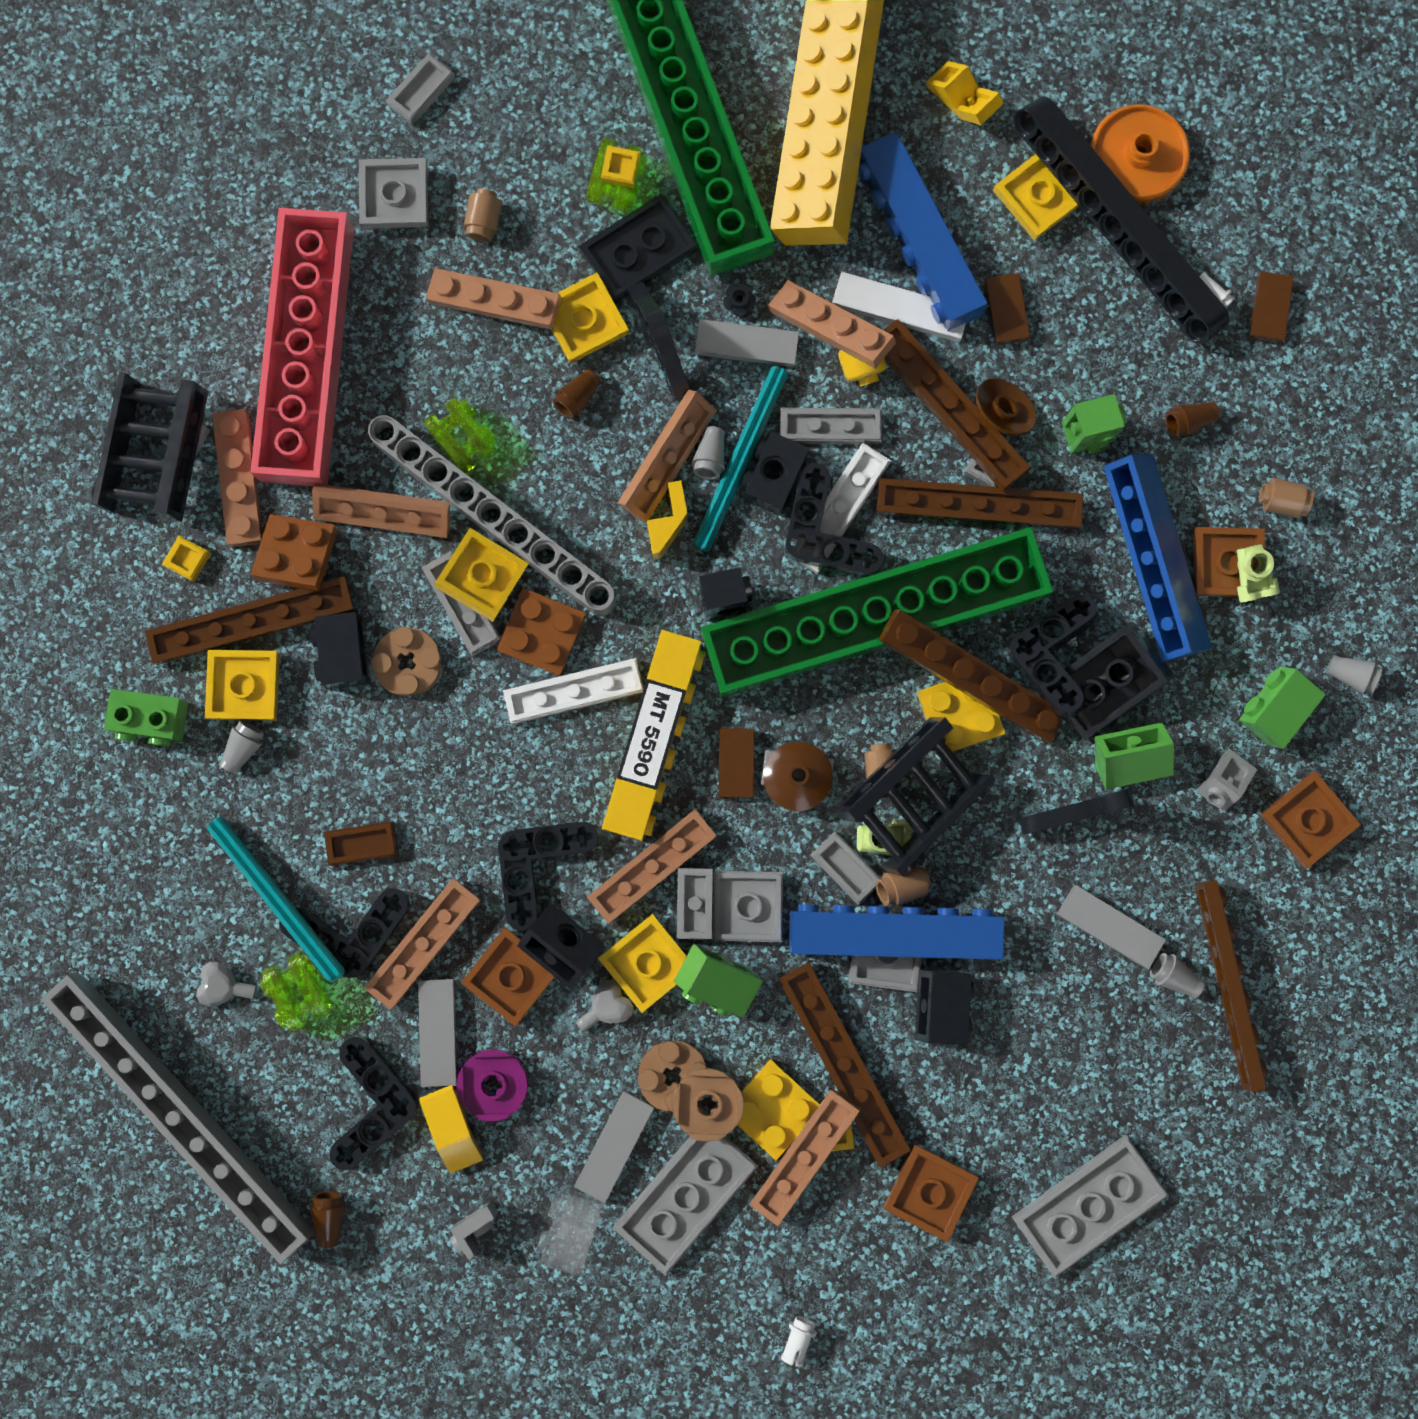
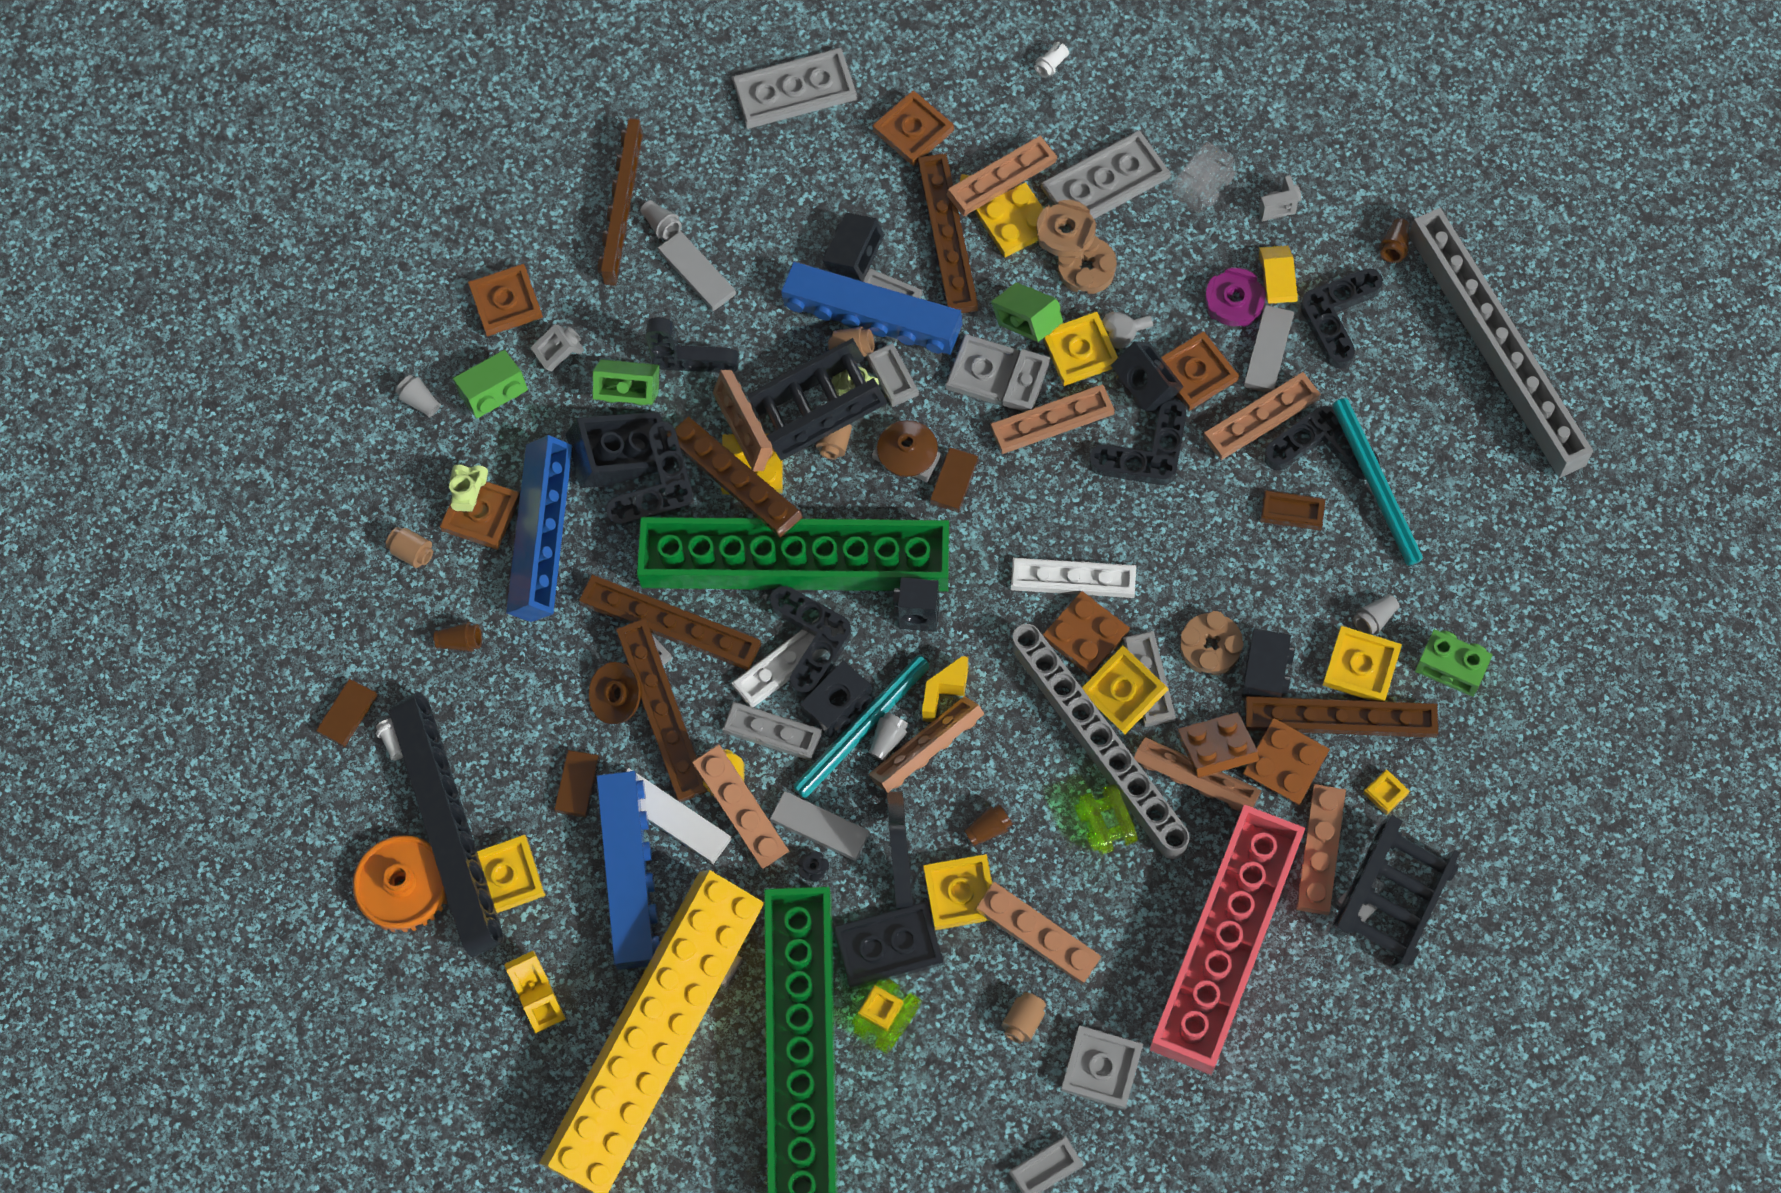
camera: 155 degrees left, 15 degrees down
(221, 985) = (1441, 434): light grey rock -> none
(277, 985) = (1387, 395): clear neon green brick -> none
(367, 545) = (1218, 744): none -> dark orange plate
(614, 1146) = (1150, 229): light grey tile -> none
(652, 736) = (1017, 517): brick -> none
(994, 753) = (742, 420): none -> nougat plate
(1094, 424) = (546, 647): bright green brick -> none

